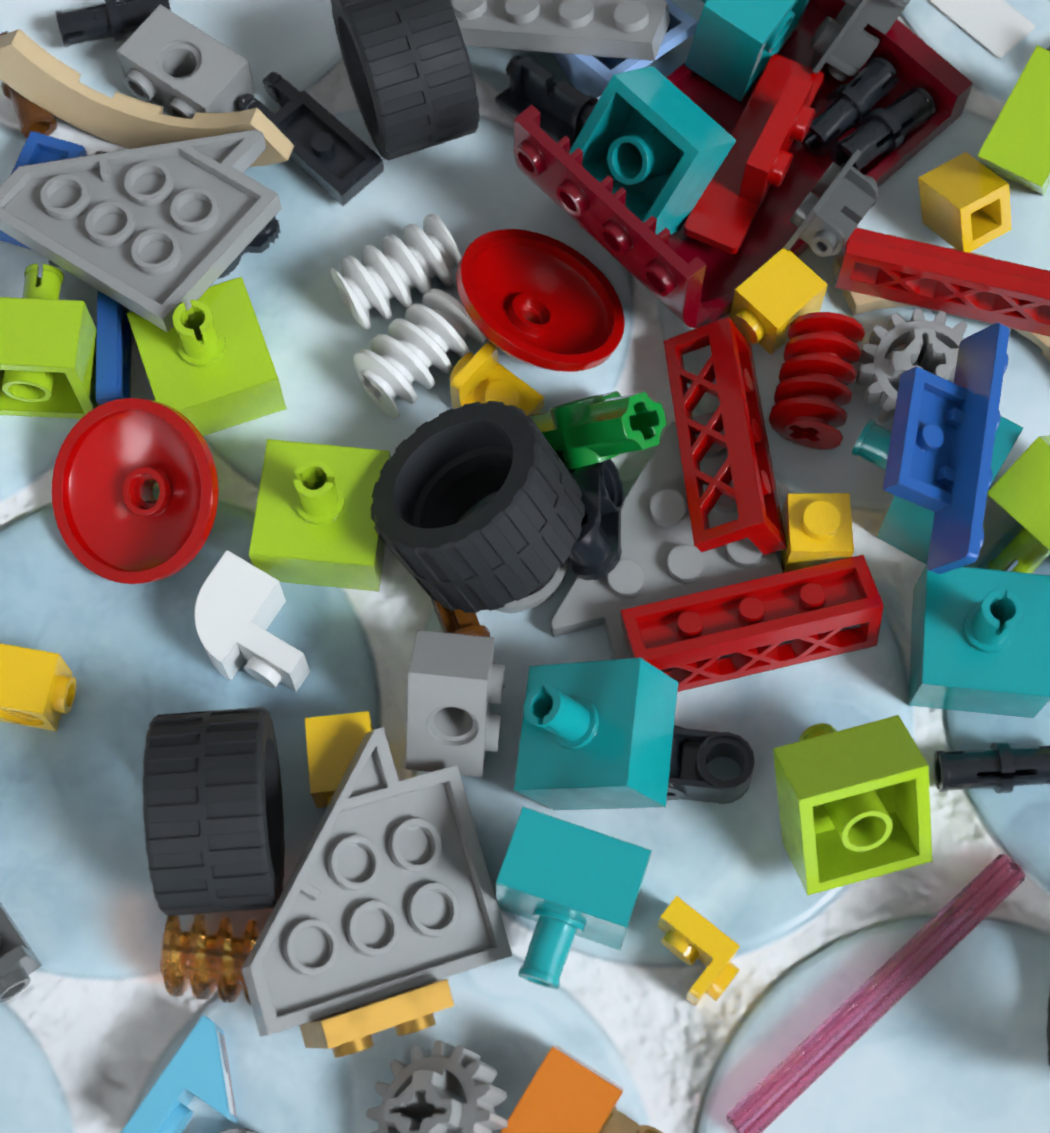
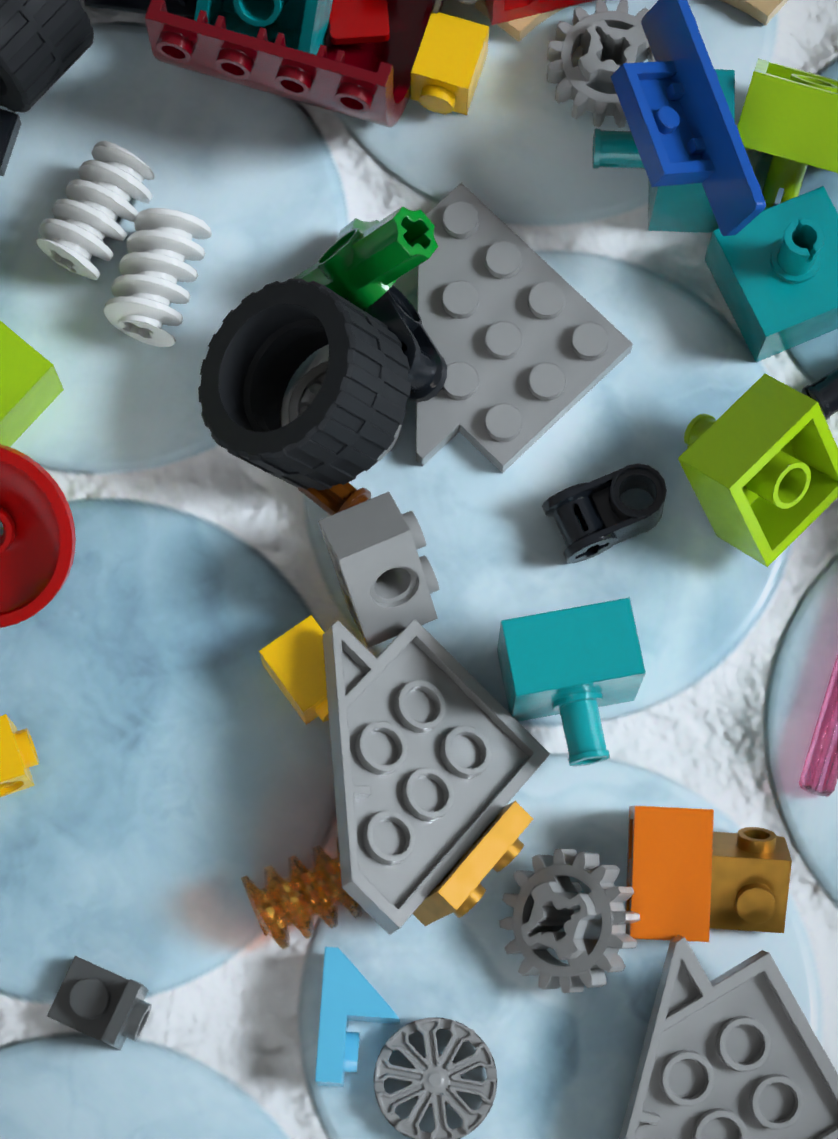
camera: 30 degrees left, 5 degrees up
(213, 811) = (237, 769): black tyre -> none
(233, 620) = (136, 601): white brick -> none
(317, 515) = (162, 467): lime brick -> none
(484, 380) = (238, 272): yellow bracket -> none
(540, 300) = (243, 171): red dish -> none
(597, 735) = (518, 528): teal brick -> none
(694, 938) = (694, 653): yellow bracket -> none
(745, 439) = (494, 202): red fence -> none
(754, 620) = (592, 364): red fence -> none
(816, 379) = (522, 117): red piece -> none
(816, 529) = (601, 255): yellow brick -> none

